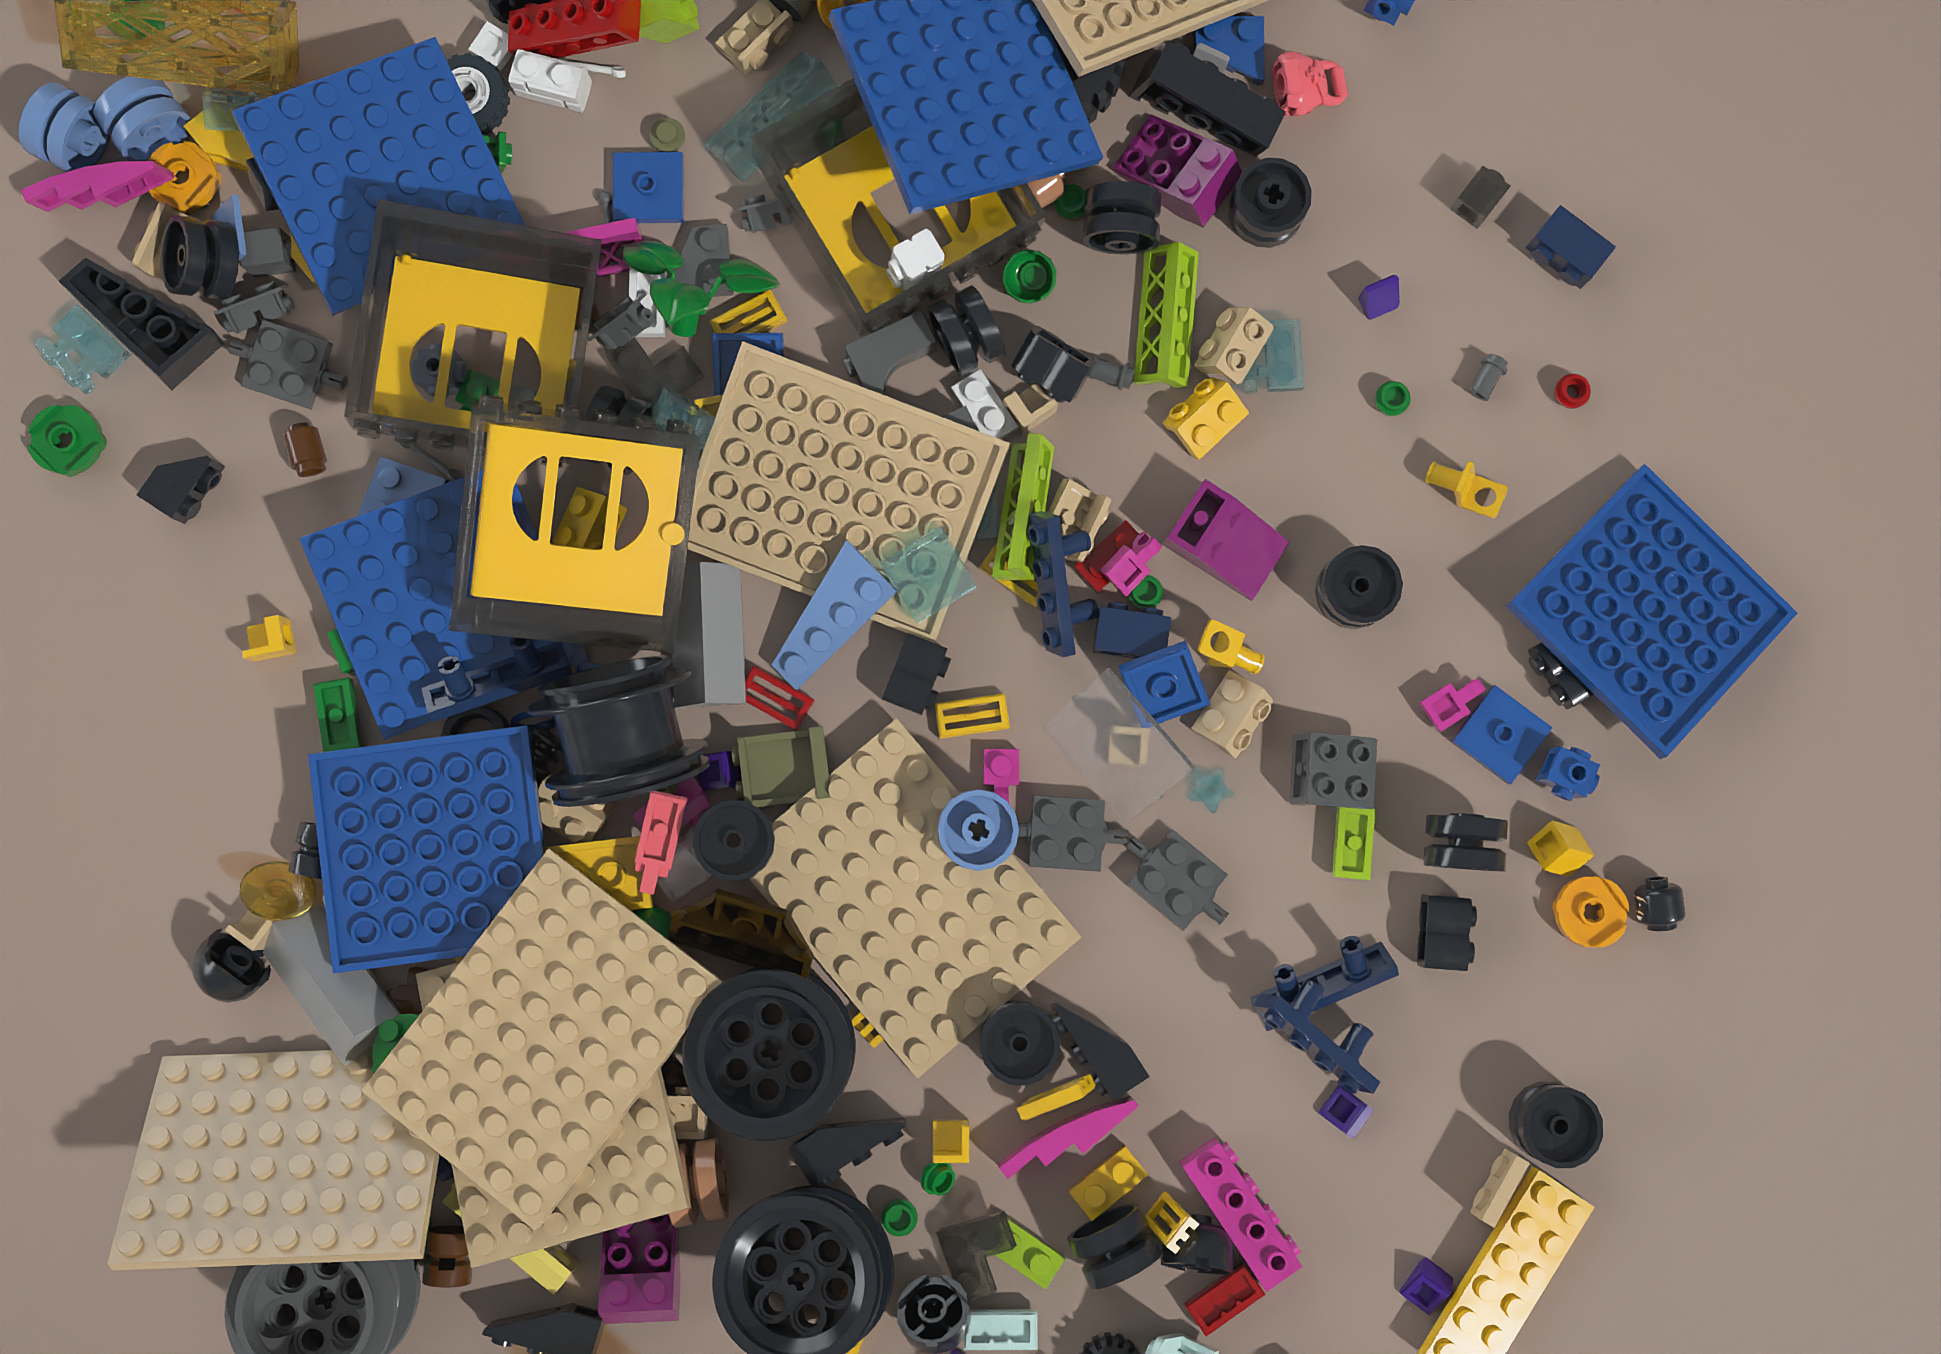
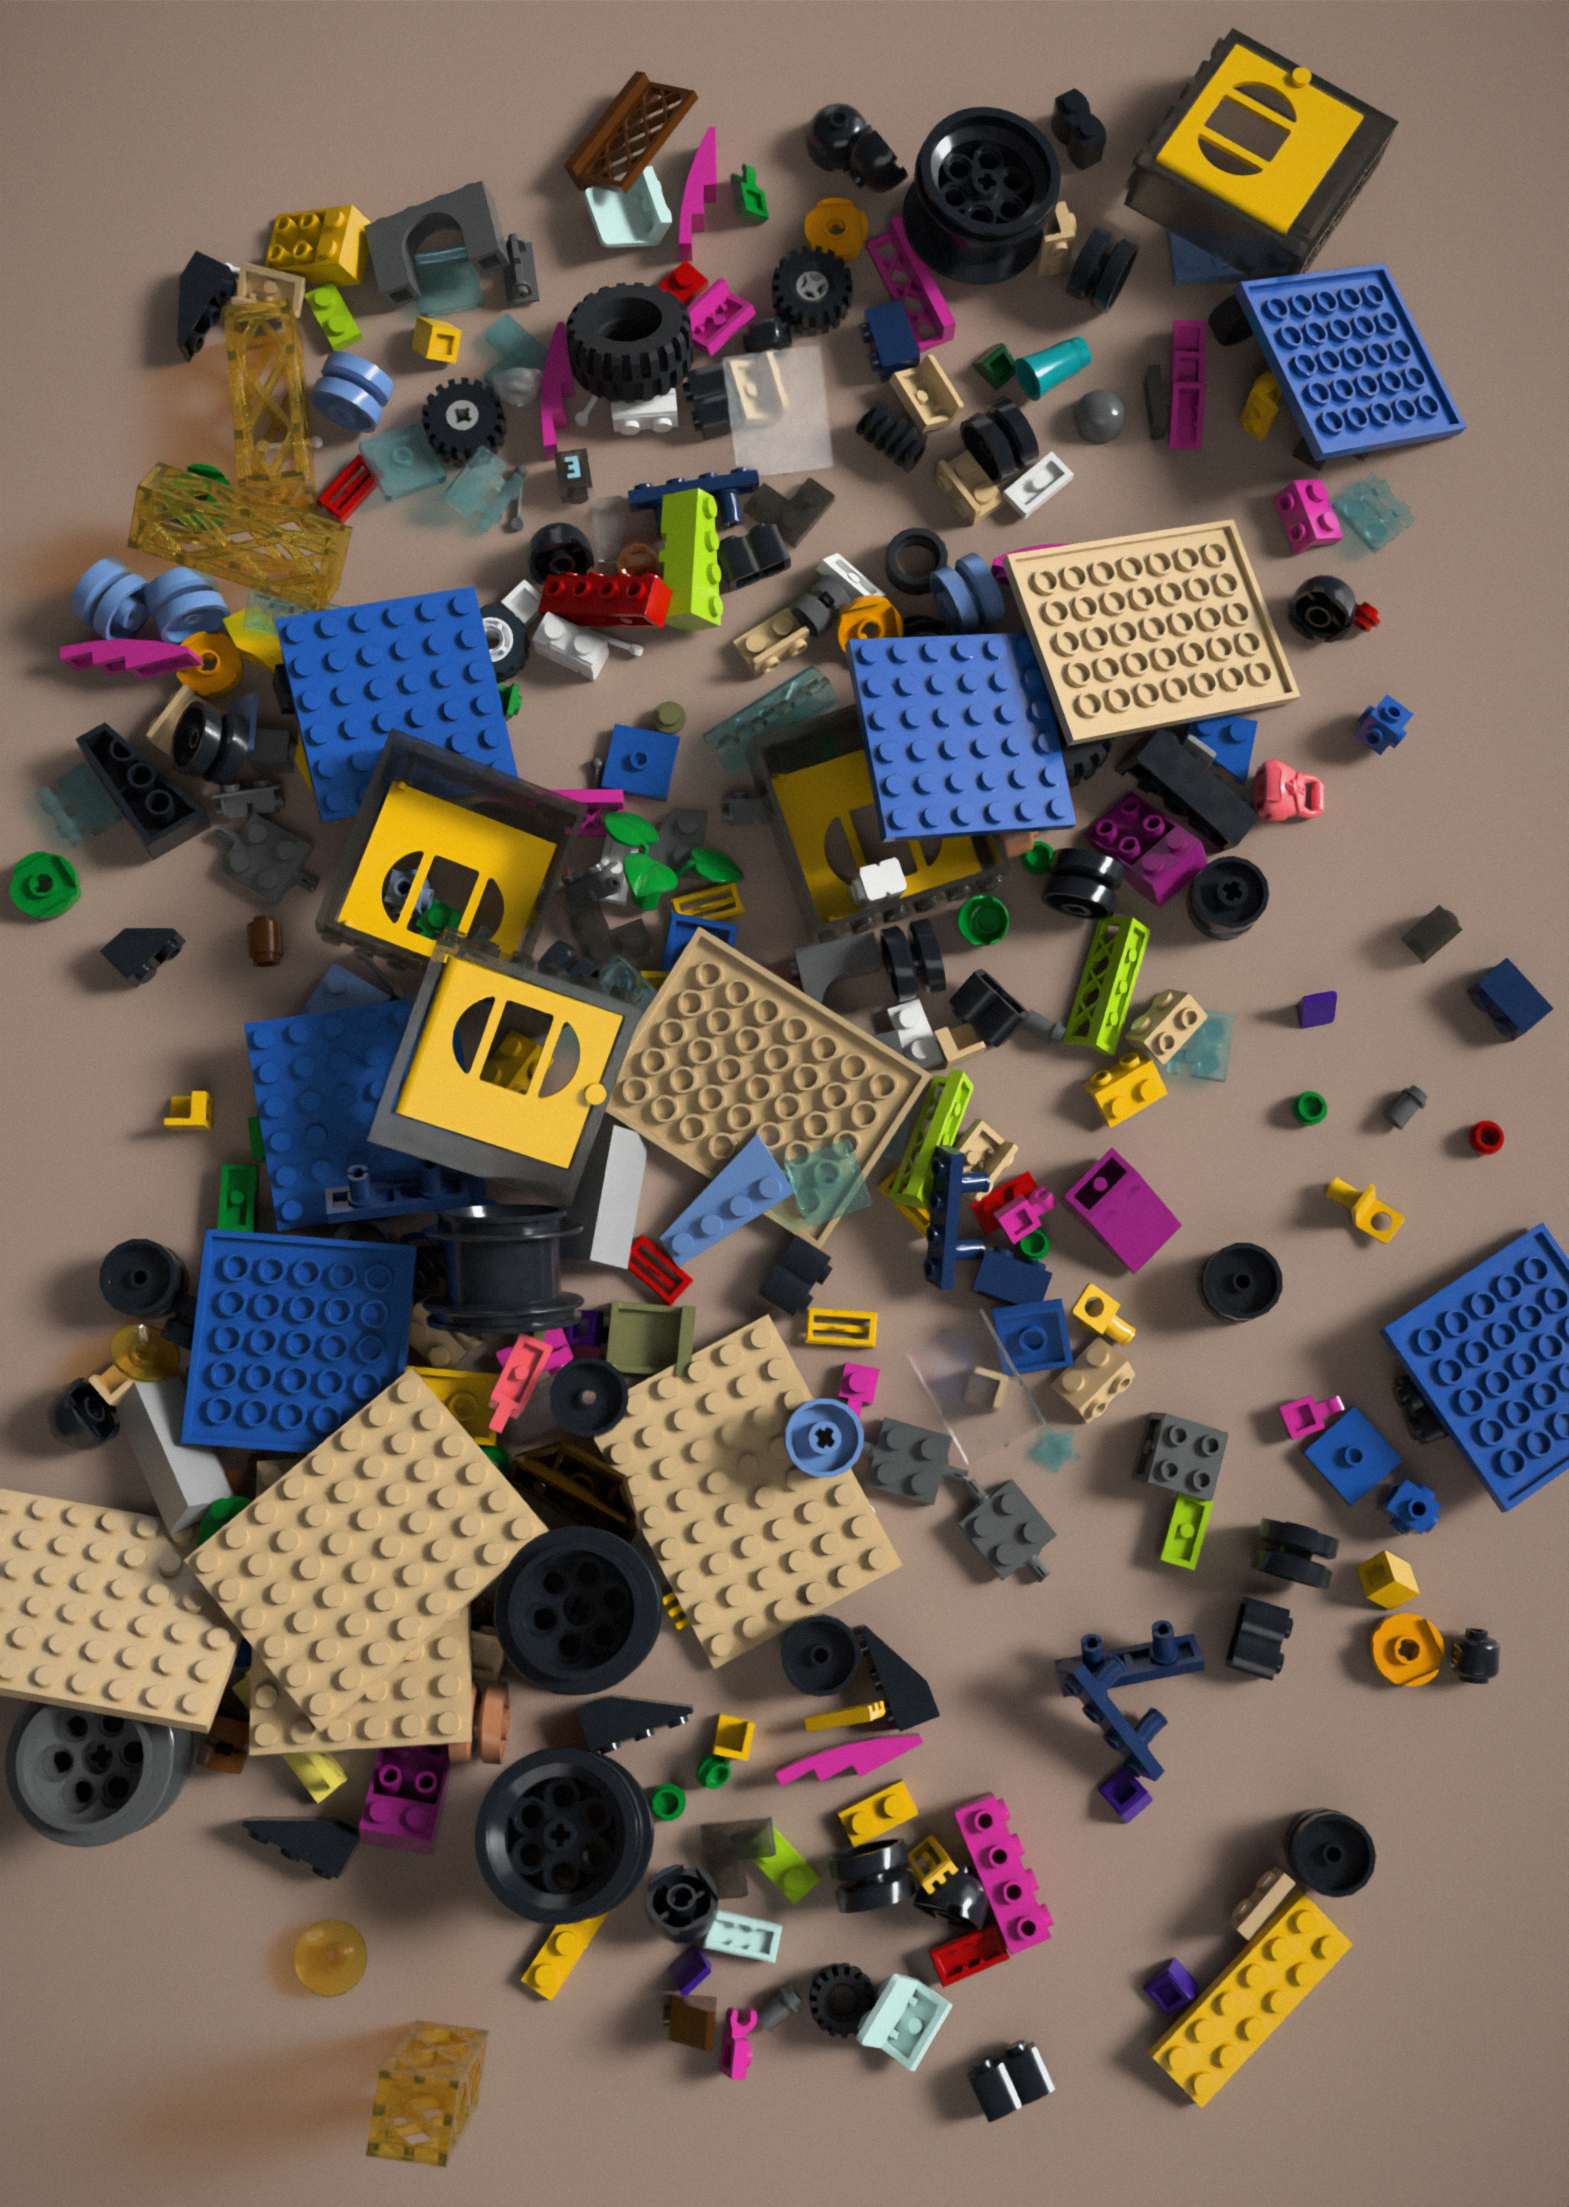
camera: 15 degrees right, 5 degrees down
(238, 820) = (123, 1275): none -> black wheel

